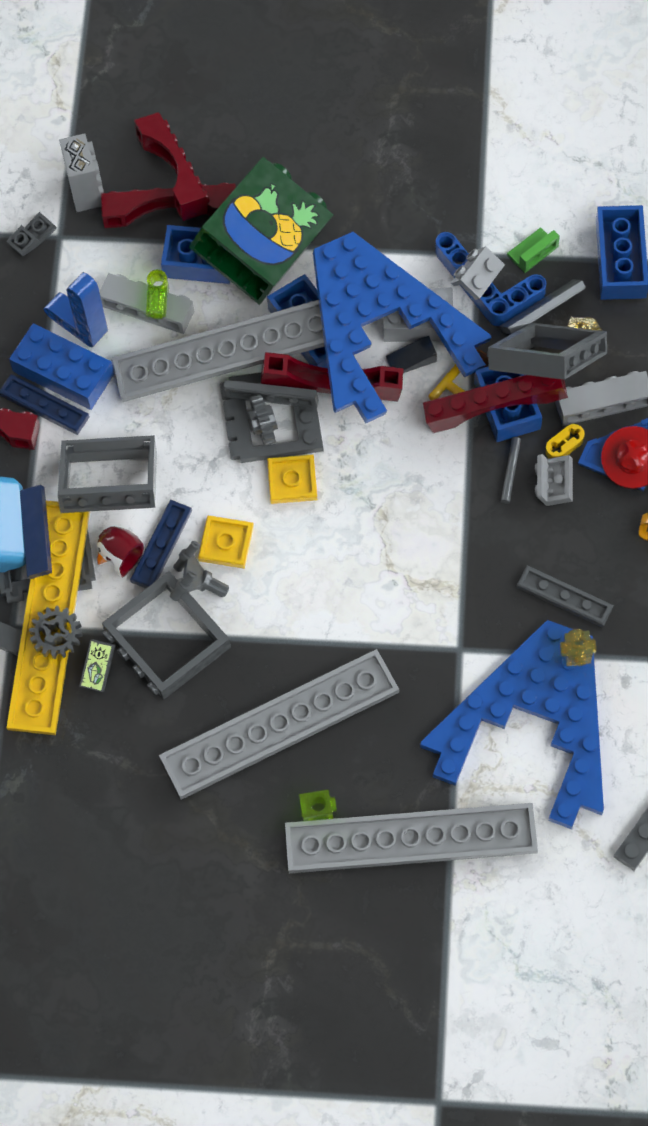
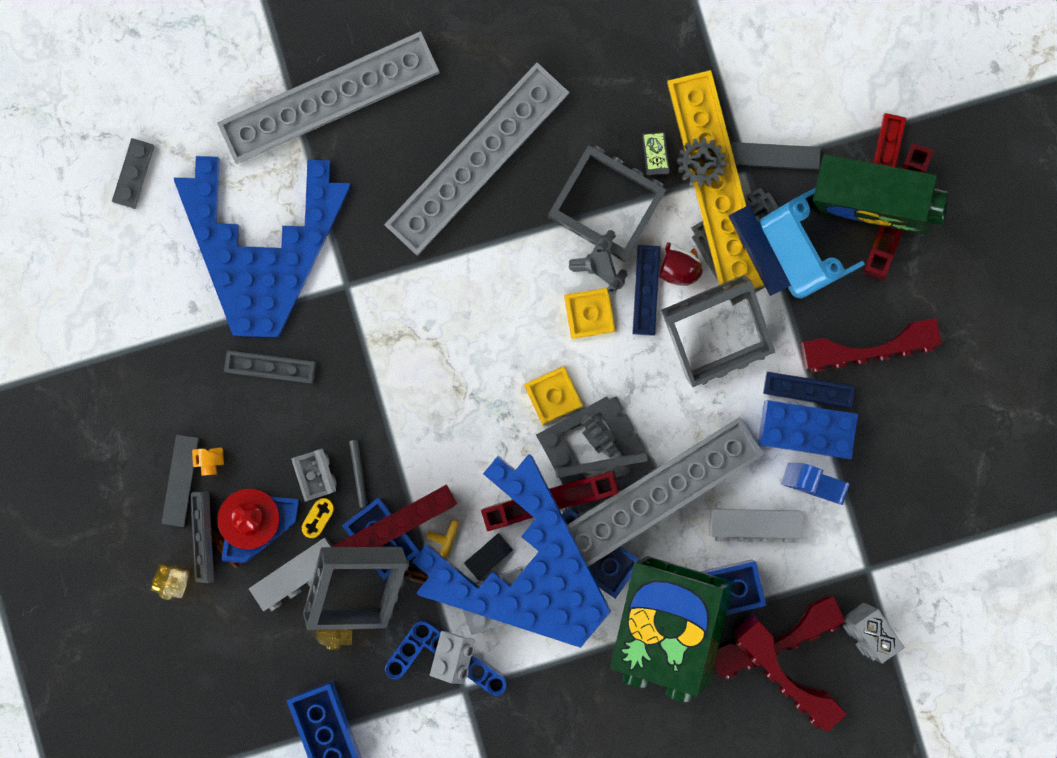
camera: 155 degrees right, 20 degrees up
(28, 238) = (894, 560): dark grey slope -> none
(157, 295) = (745, 523): clear neon green piece -> none
(307, 800) = (418, 86): clear neon green brick -> none
(534, 249) = (413, 713): bright green panel -> none
(543, 306) = (383, 650): dark grey tile -> none
(578, 647) = (245, 312): clear yellow brick -> none

